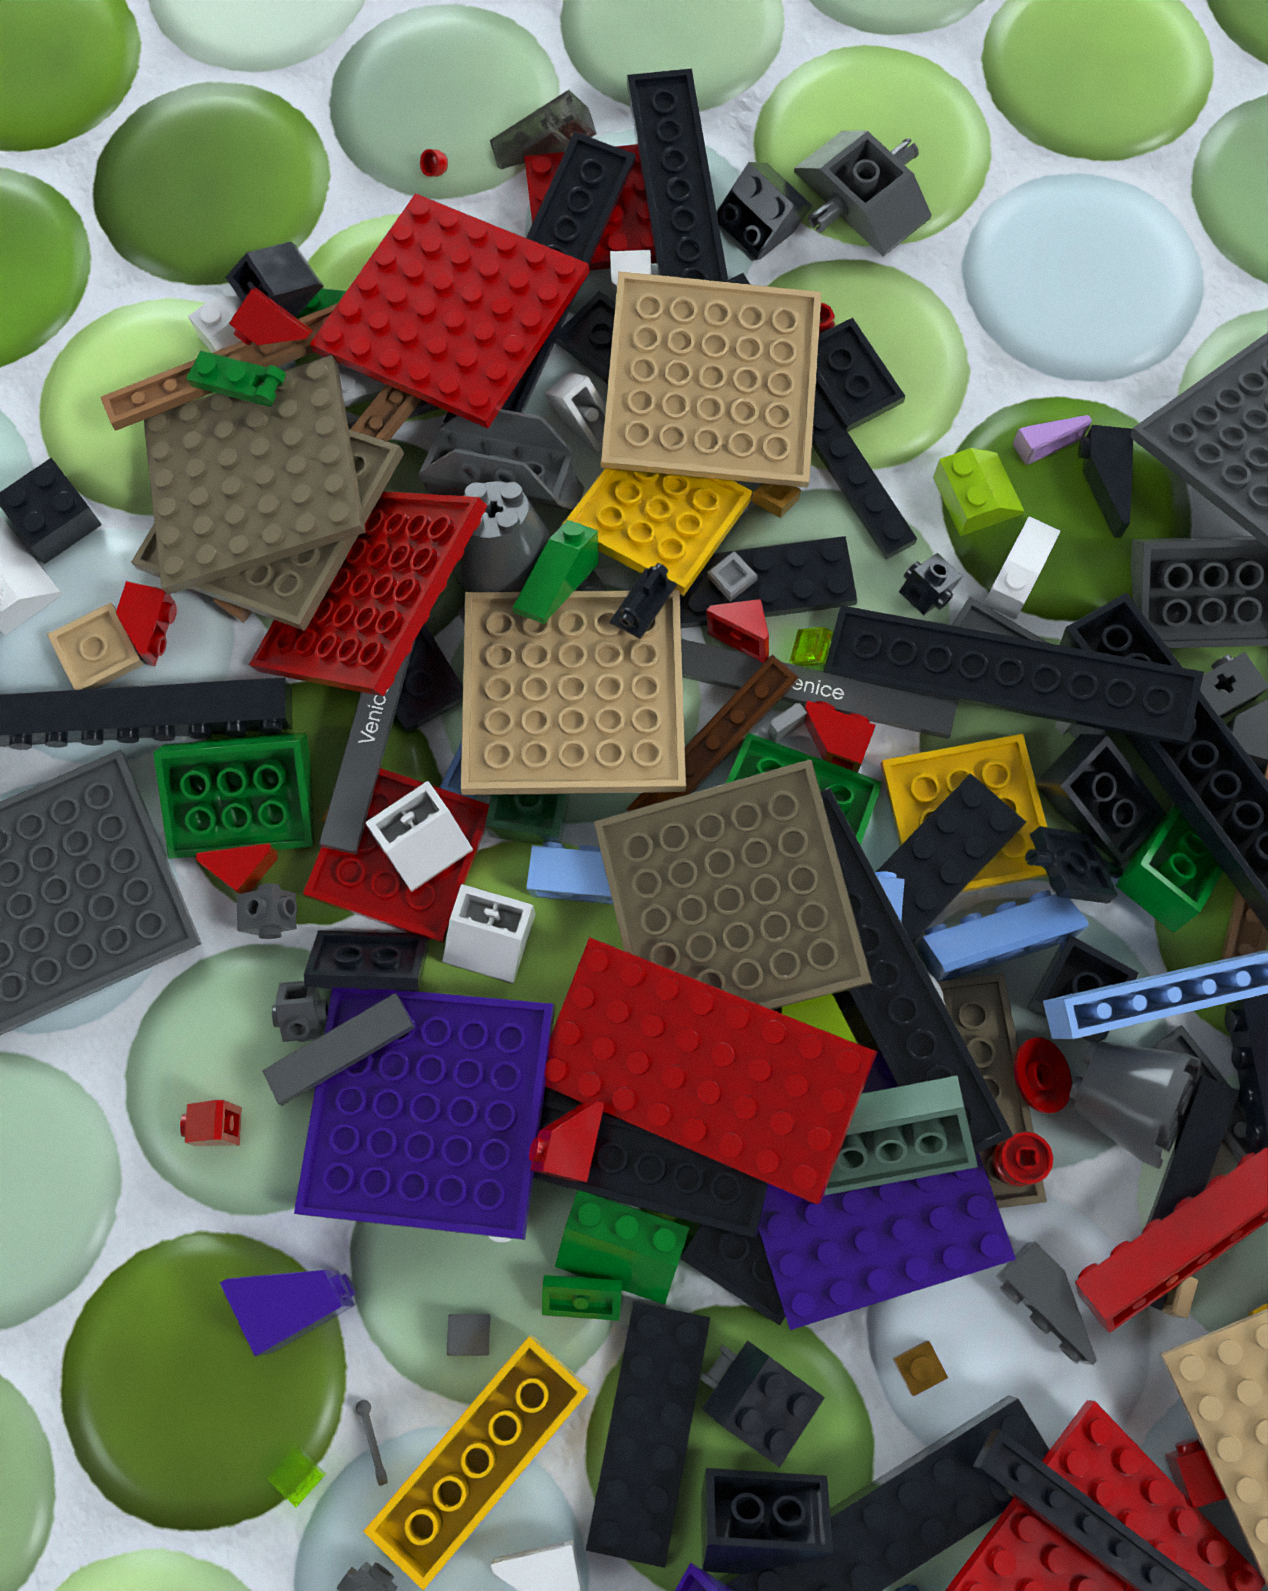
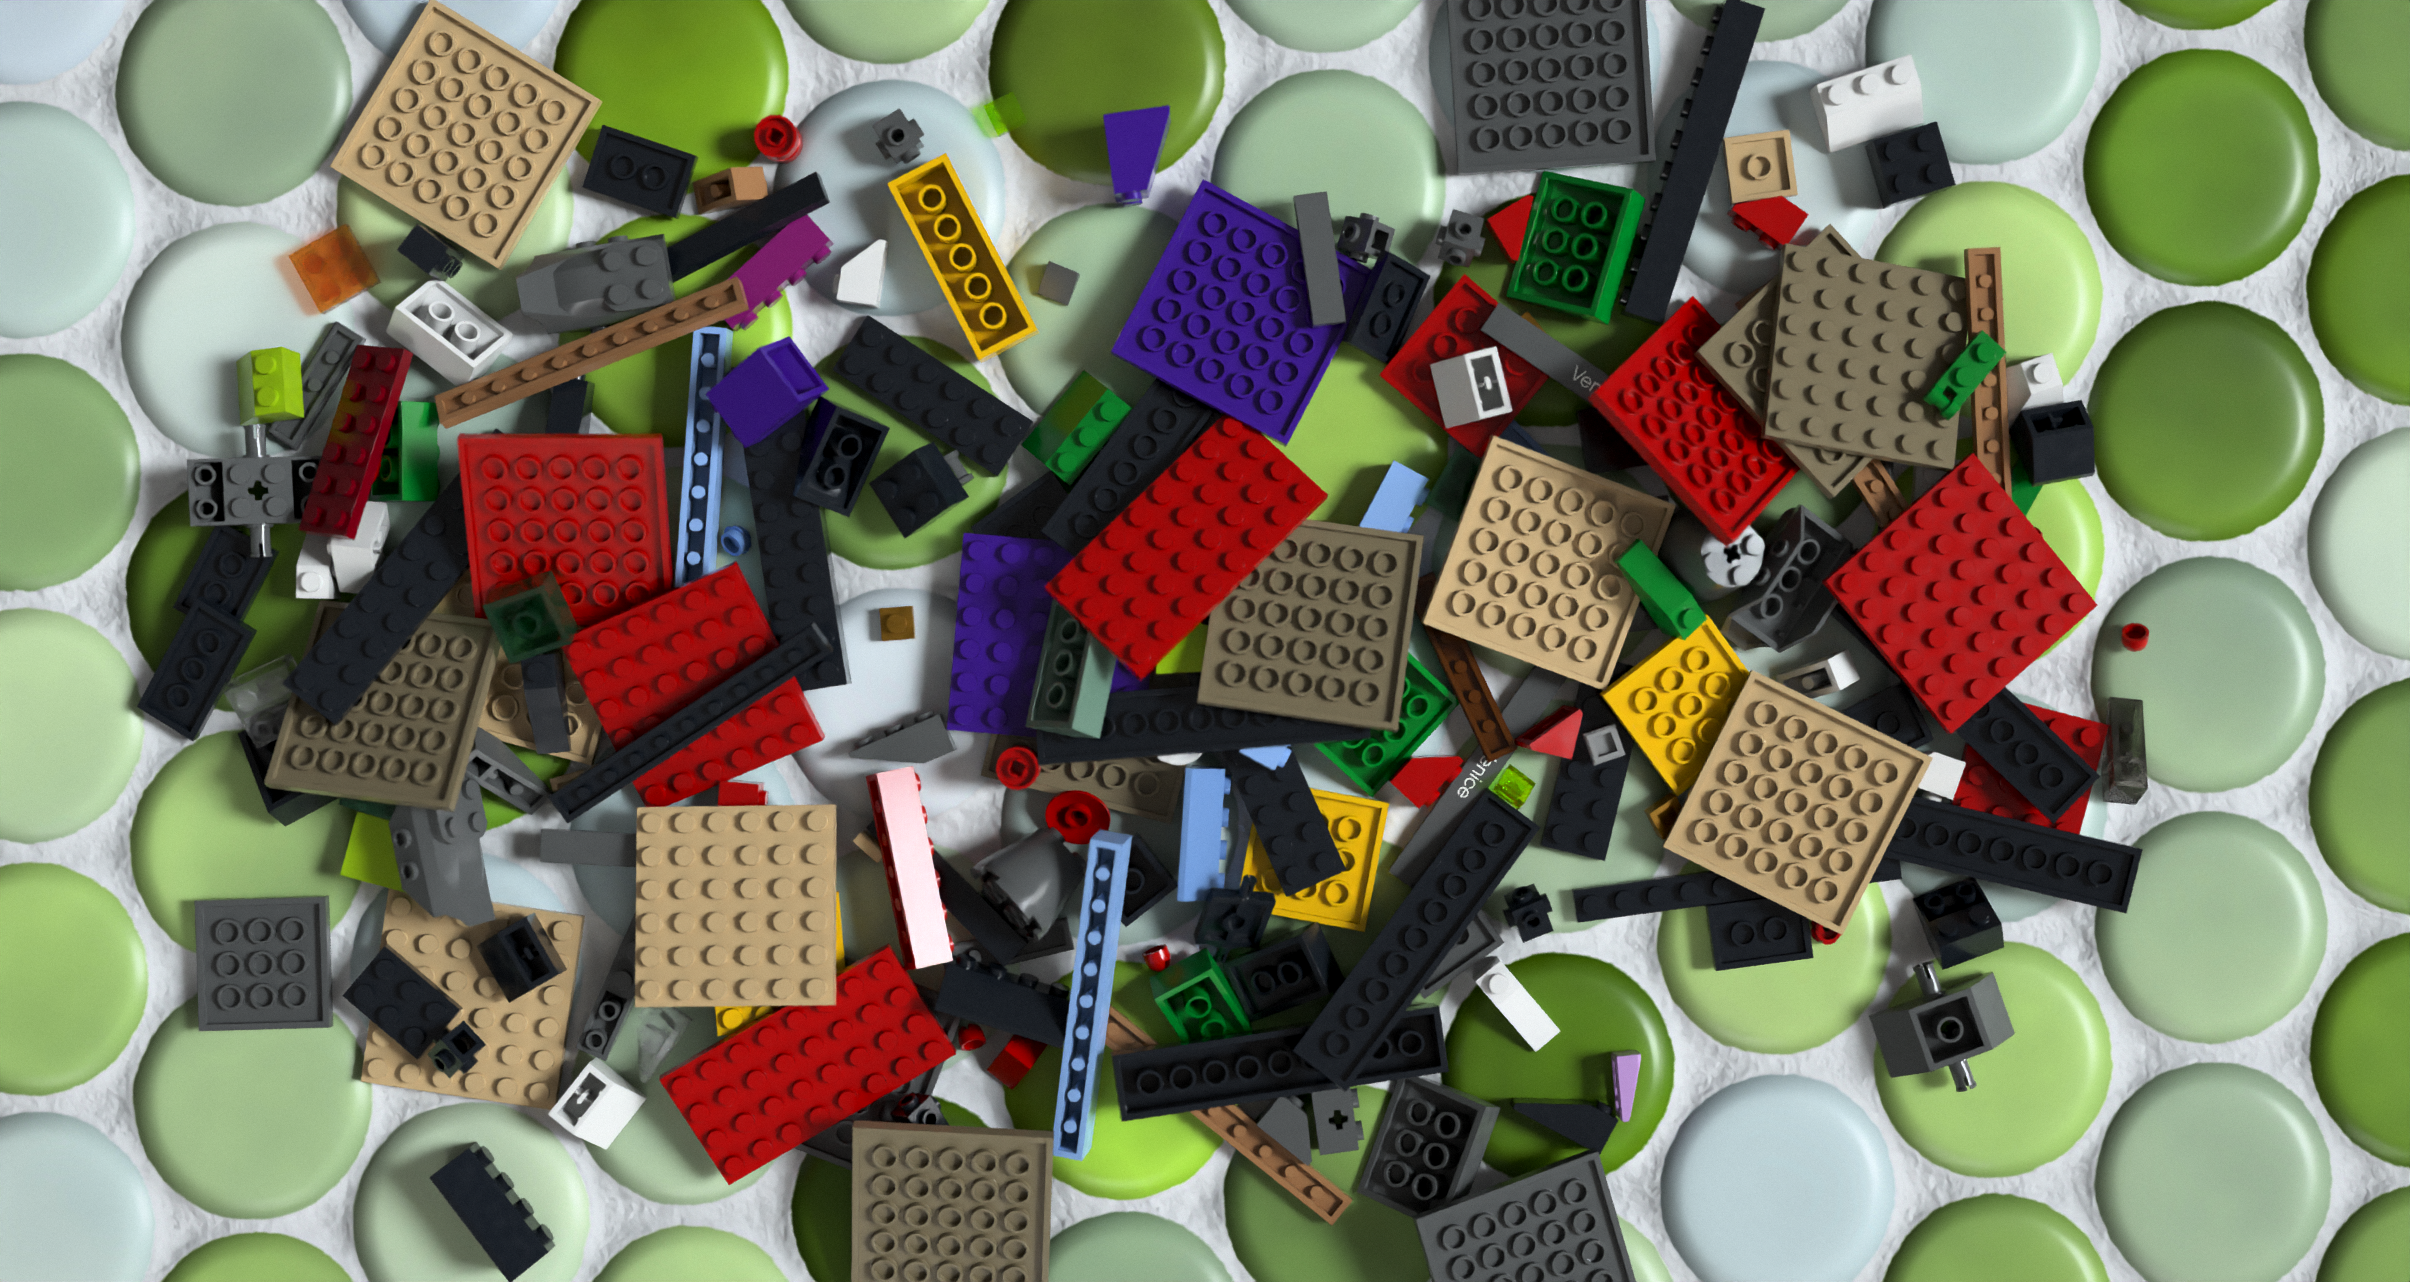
camera: 105 degrees right, 15 degrees up
(211, 1124) = (1301, 135): red slope -> none
(266, 322) = (2006, 422): red slope -> none
(363, 1409) = (1035, 182): dark grey hinge -> none
(488, 933) = (1369, 414): white slope -> none
(568, 1144) = (1169, 414): red slope -> none
(581, 1297) = (1051, 381): green plate -> none
(644, 601) = (1603, 654): black hinge -> none
(787, 722) = (1454, 737): light grey tile -> none
(976, 490) = (1601, 996): lime slope -> none
(1147, 933) = (1157, 957): none -> red hinge

